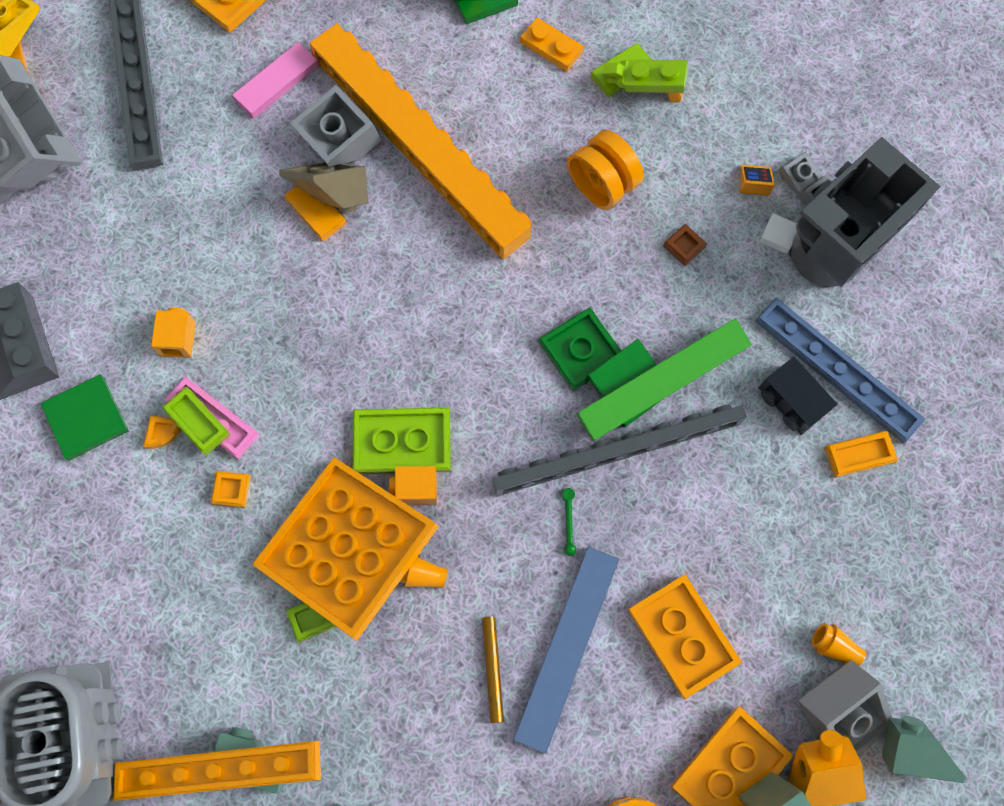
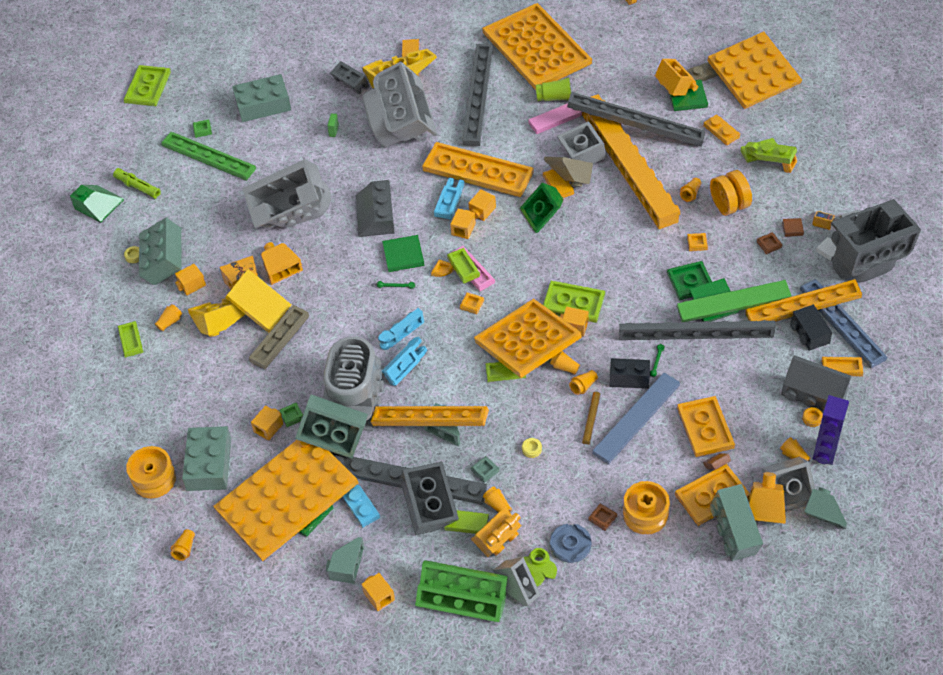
camera: 25 degrees right, 20 degrees down
(115, 478) = (411, 285): none -> green hinge
(119, 583) = (401, 330): none -> medium azure hinge
(136, 288) = (449, 199): none -> medium azure hinge
(143, 648) = (404, 361): none -> medium azure hinge
(170, 214) = (478, 169): none -> light orange plate
(196, 288) = (482, 204): none -> light orange brick
(261, 29) = (554, 90): none -> lime plant
(301, 266) = (541, 206): none -> green slope
(409, 60) = (636, 119): none -> dark grey plate
(409, 760) = (531, 447): none -> light yellow tile
(460, 606) = (582, 382): none -> light orange cone
(535, 173) = (690, 190): none -> light orange cone
(535, 568) = (629, 373): none -> black brick
(571, 271) = (697, 242): none -> light orange tile
(713, 205) = (793, 227): none -> dark orange tile
(722, 703) = (717, 461): none -> dark orange tile
(772, 352) = (820, 298): none -> light orange tile
(841, 516) = (813, 383): none -> dark grey slope
(843, 565) = (812, 417): none -> light orange tile
(907, 621) = (830, 430): none -> dark purple brick

